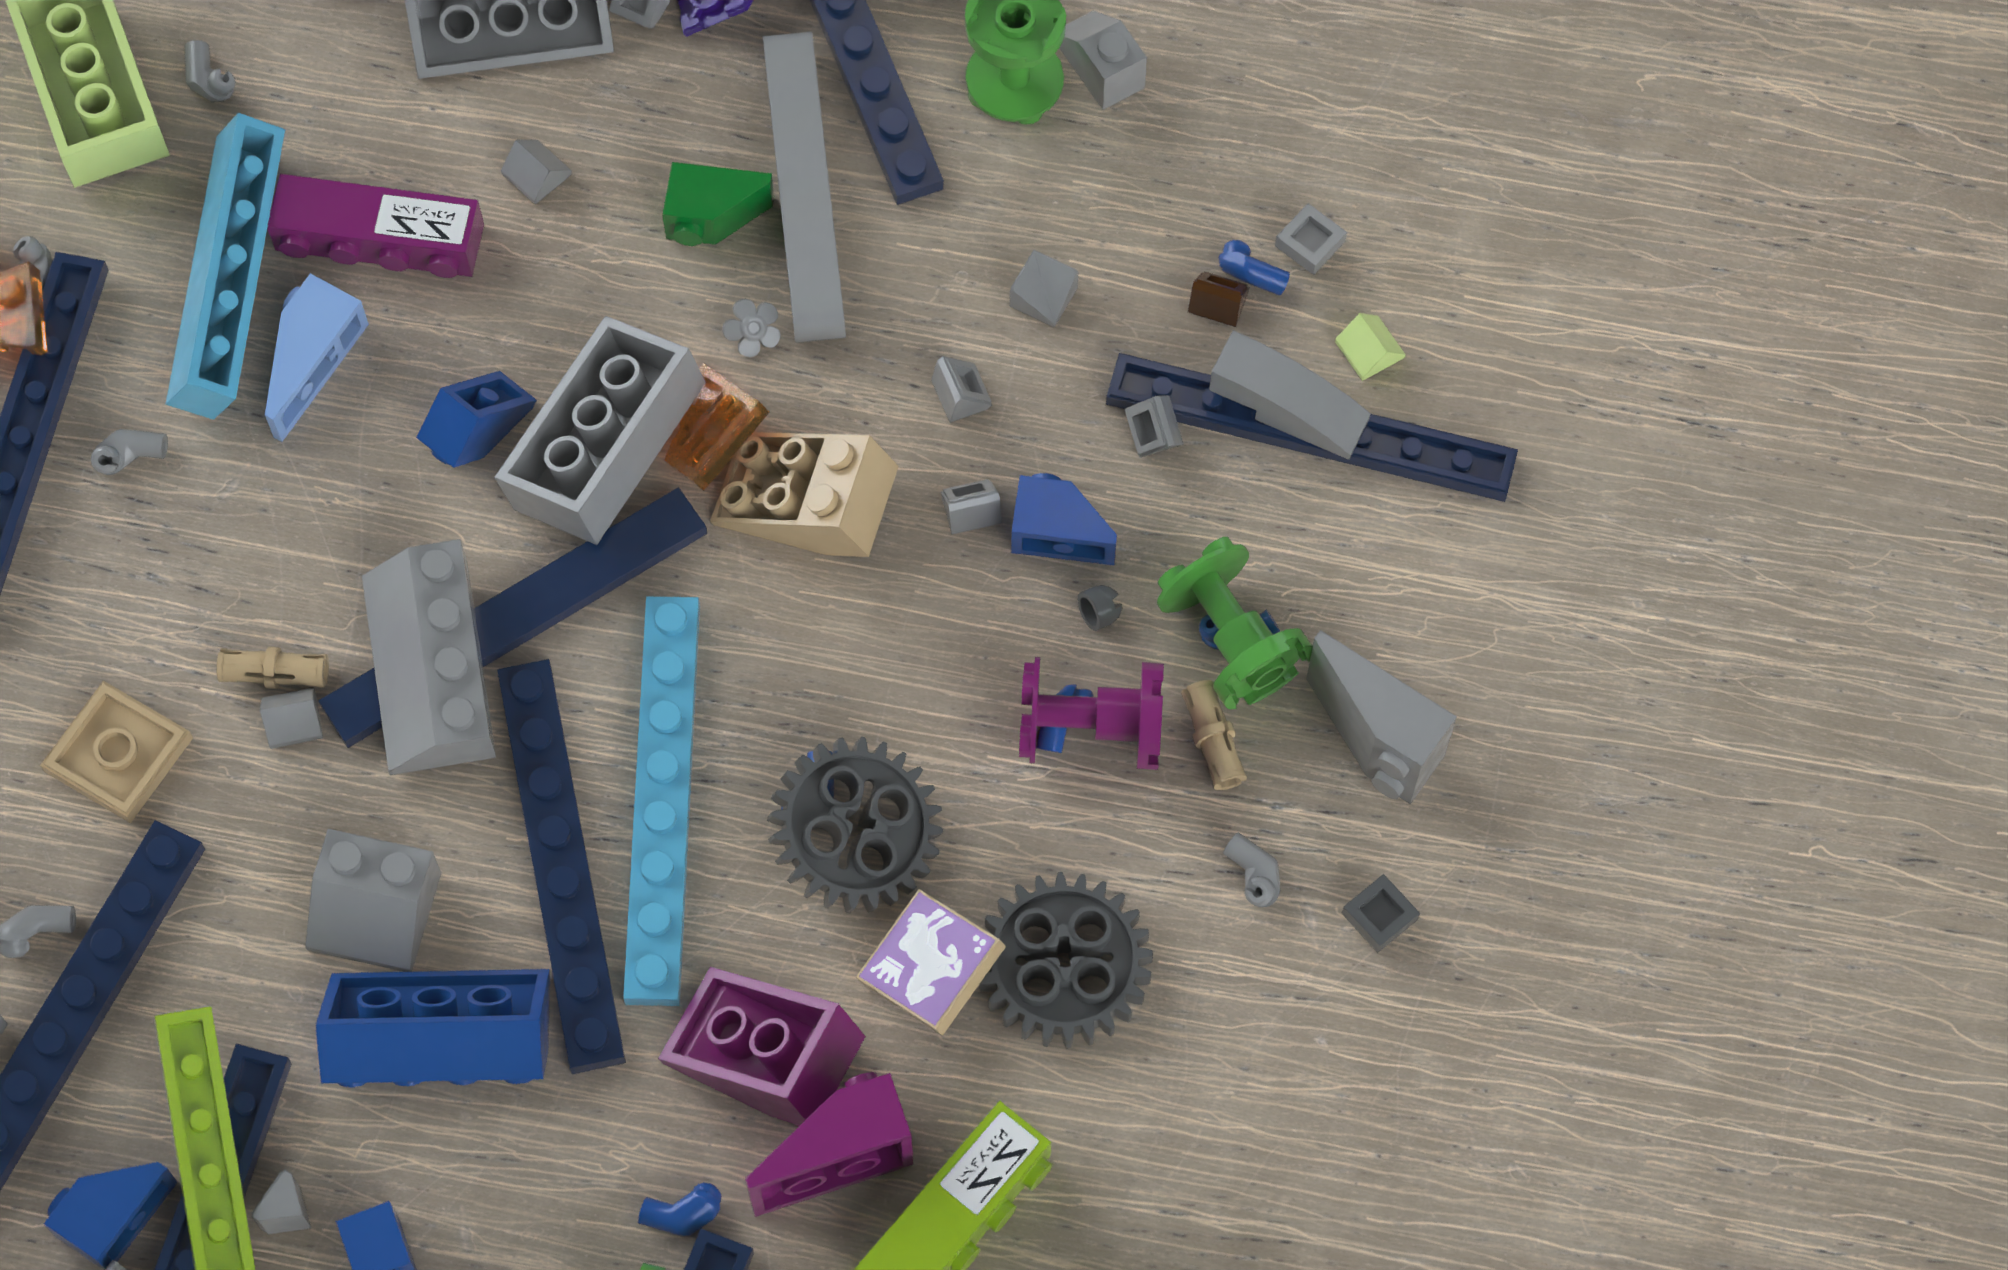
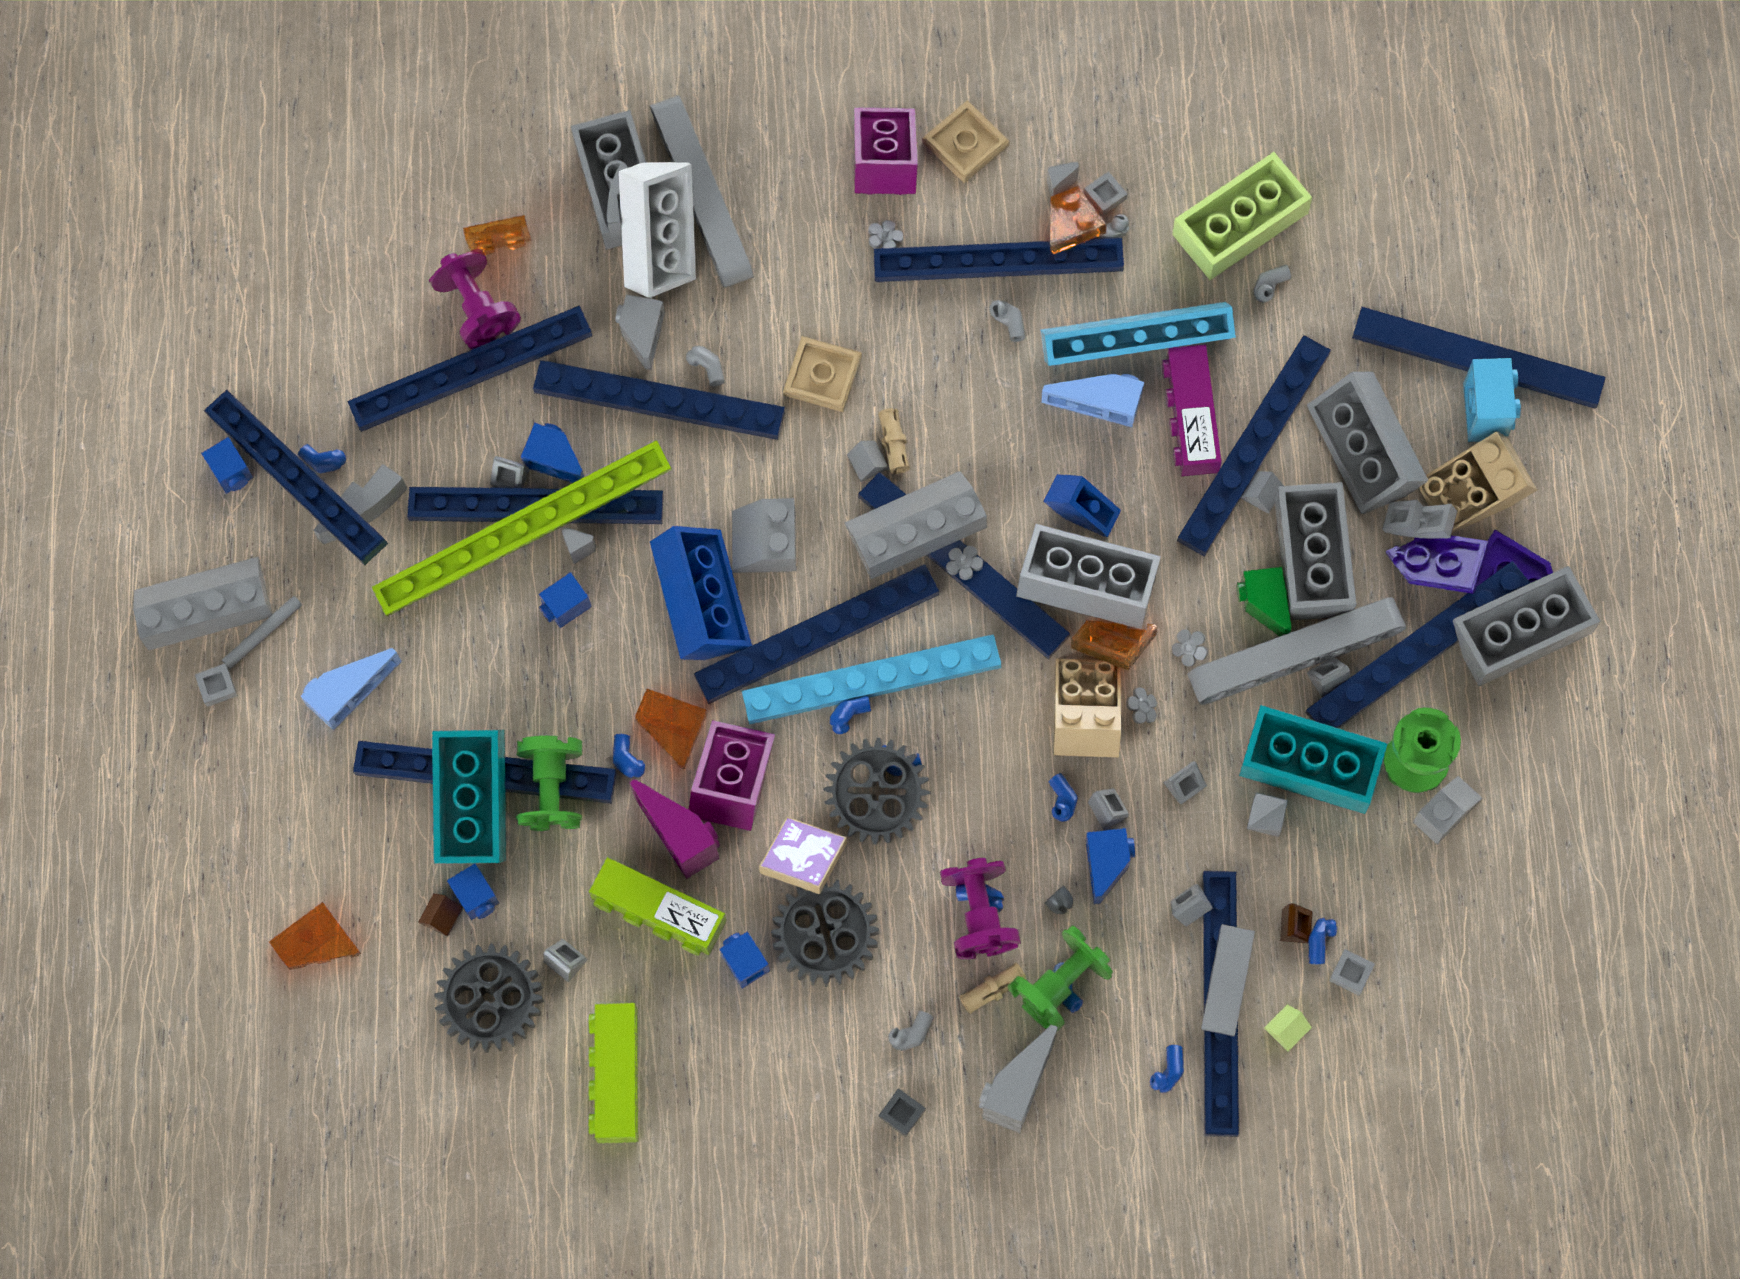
camera: 80 degrees right, 5 degrees up
(460, 164) = (1253, 445): none -> dark blue plate
(515, 608) = (964, 562): none -> light grey plant
(644, 1126) = (671, 724): none -> clear orange wing
(656, 111) = (1315, 550): none -> light grey brick
(705, 847) = (844, 712): none -> blue arm
(823, 416) = (1142, 706): none -> light grey plant
(851, 155) = (1329, 675): none -> light grey slope
(941, 560) = (1066, 798): none -> blue arm
(981, 201) = (1313, 759): none -> teal brick
(1076, 1095) = (744, 958): none -> blue brick
(1405, 514) = (1175, 1068): none -> blue arm

